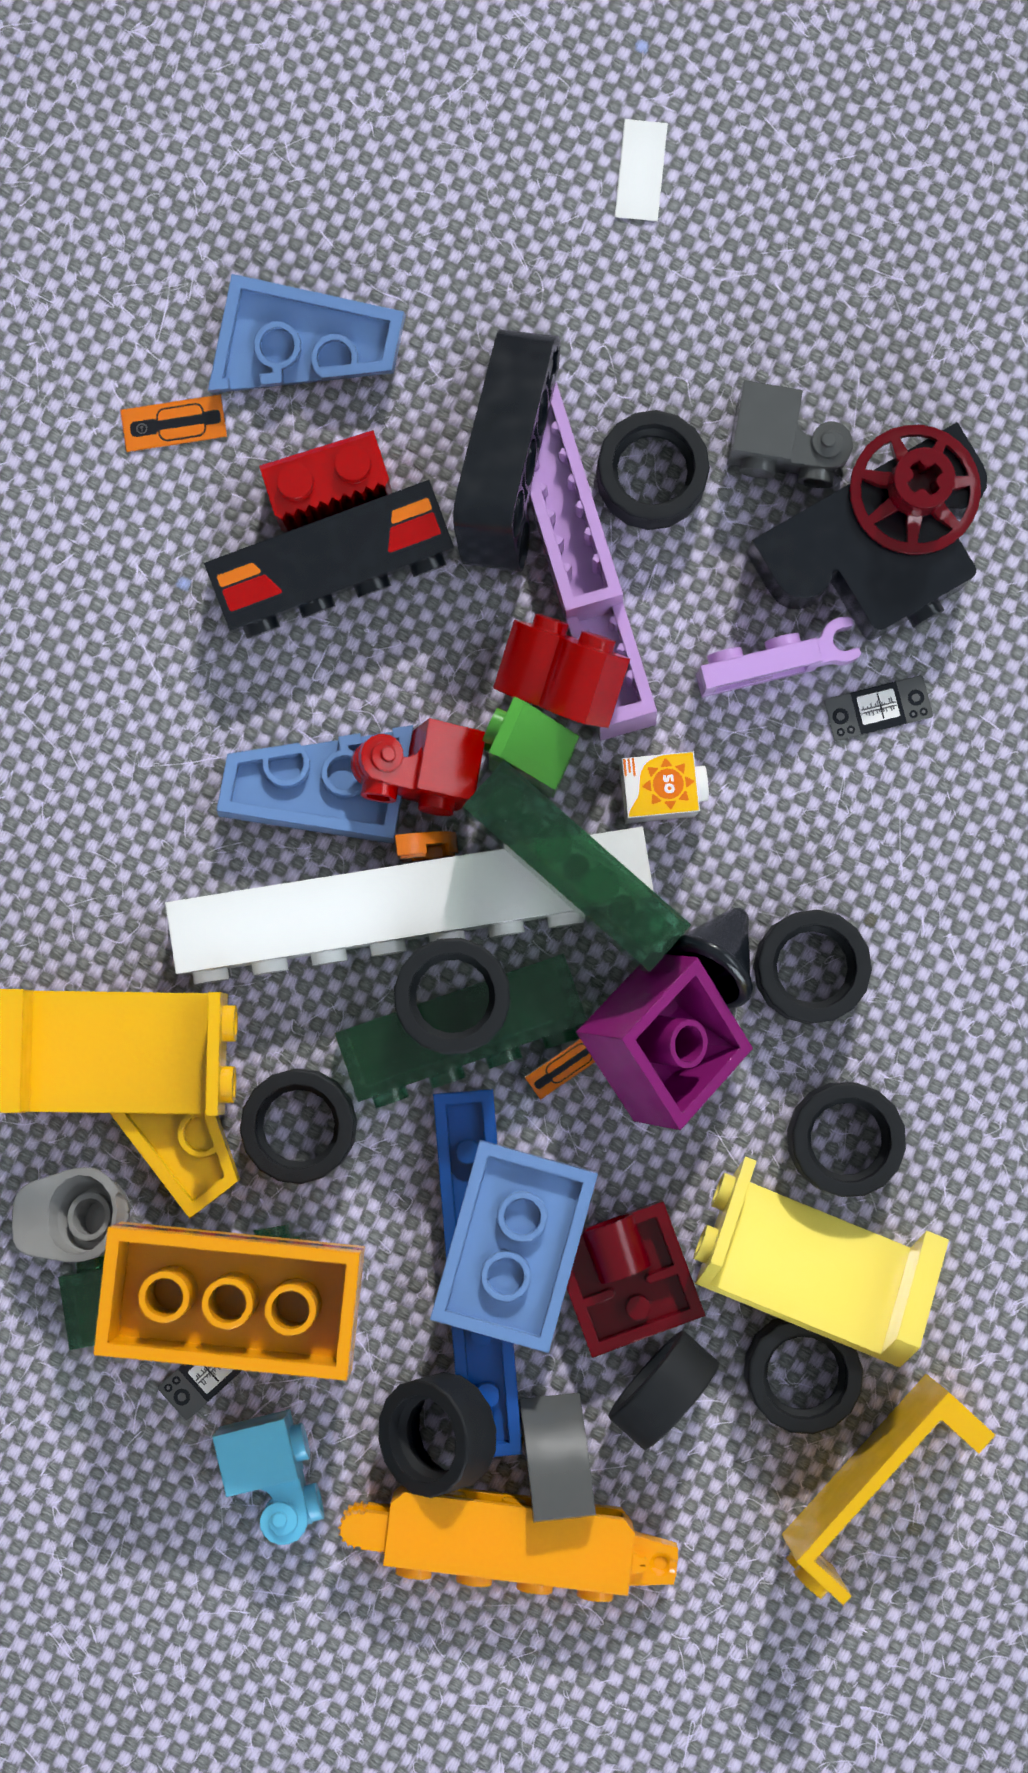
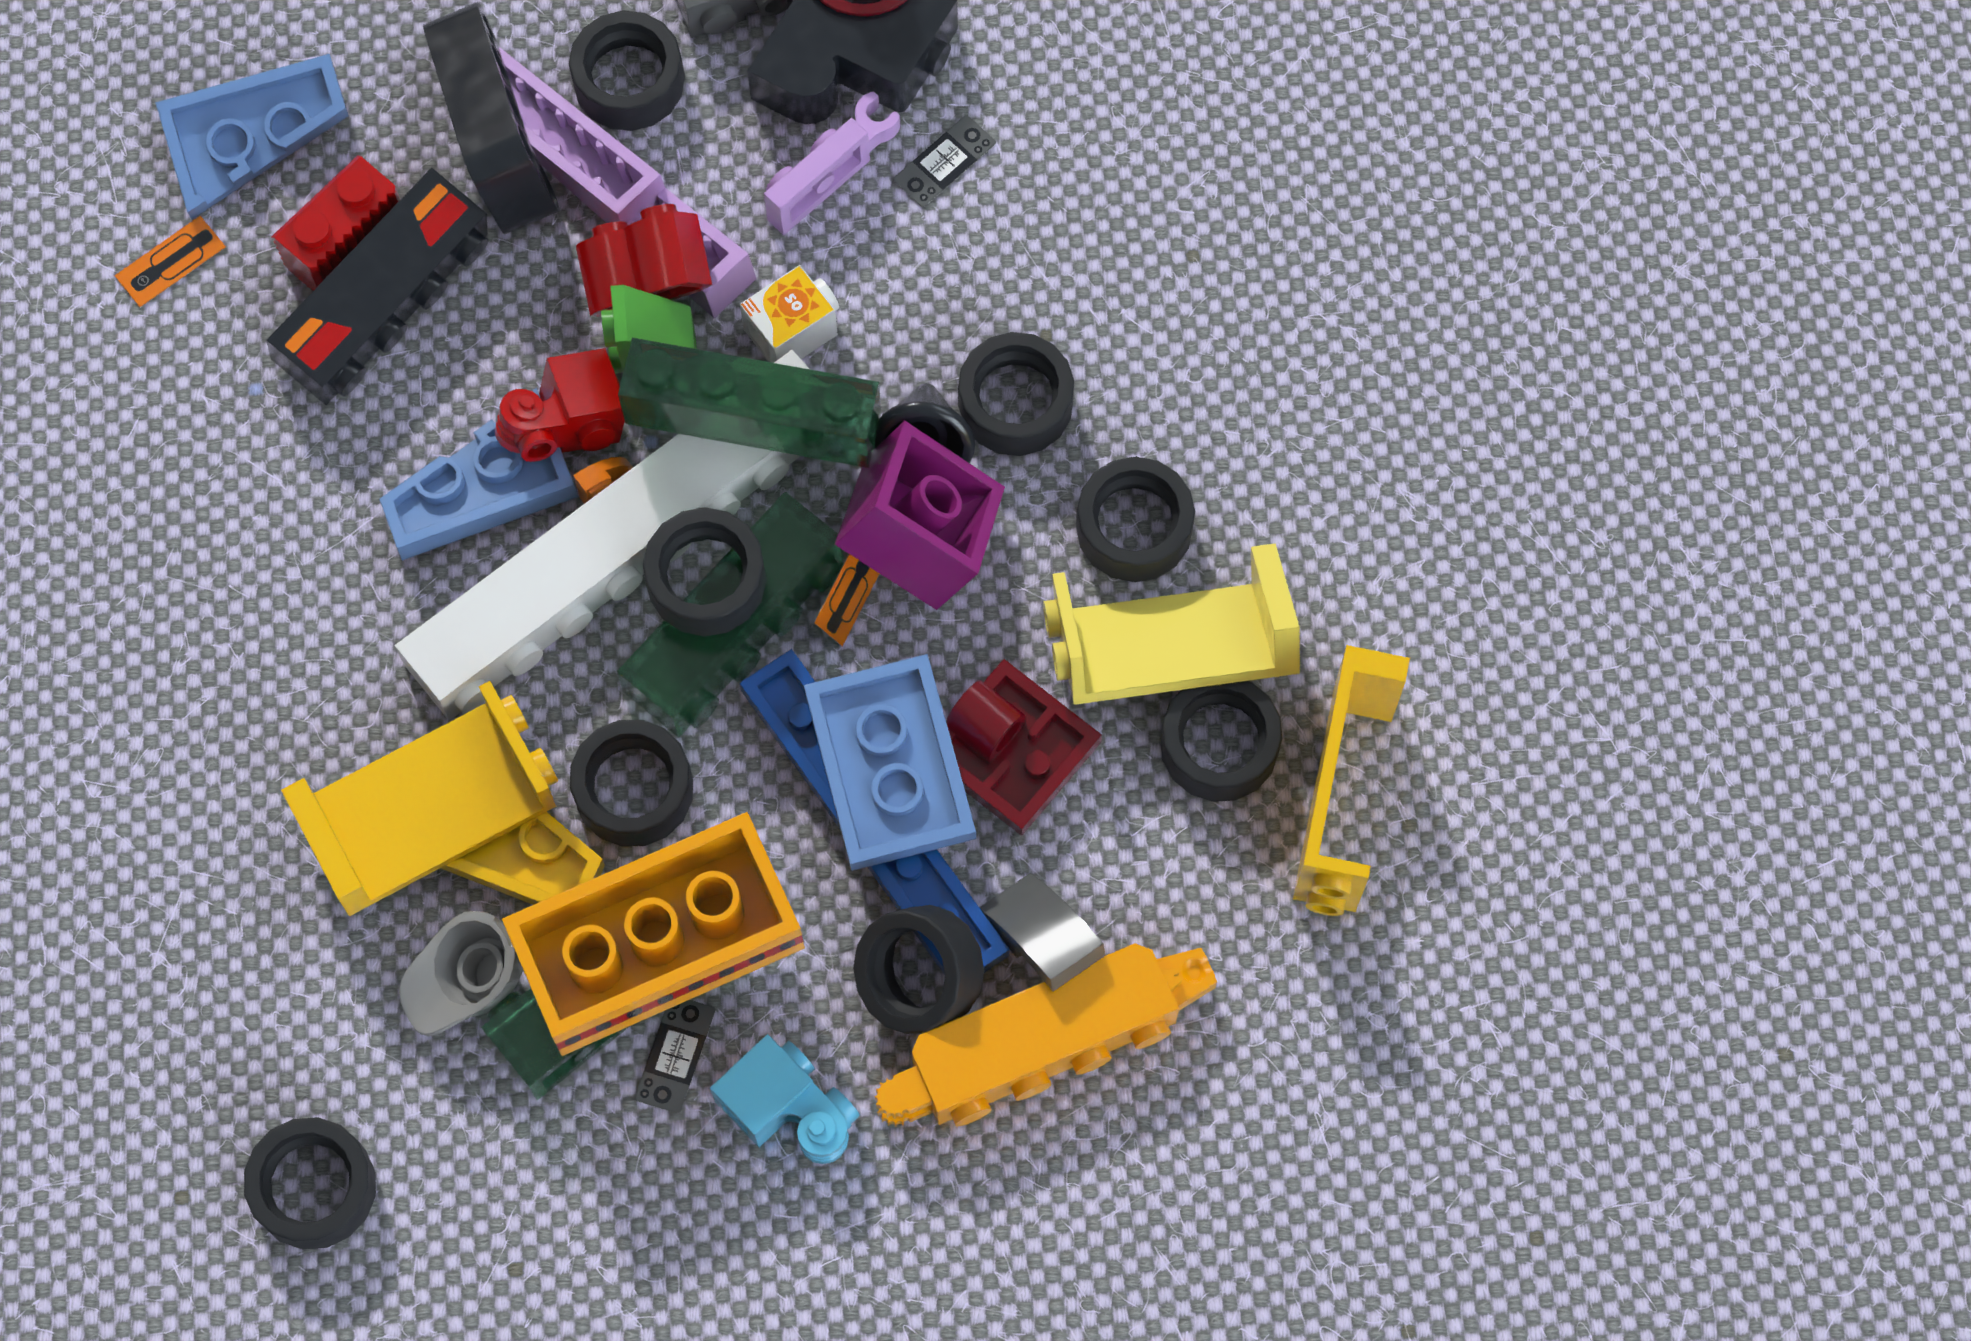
camera: 30 degrees left, 15 degrees down
(664, 1390) = (1101, 812): black tyre -> none

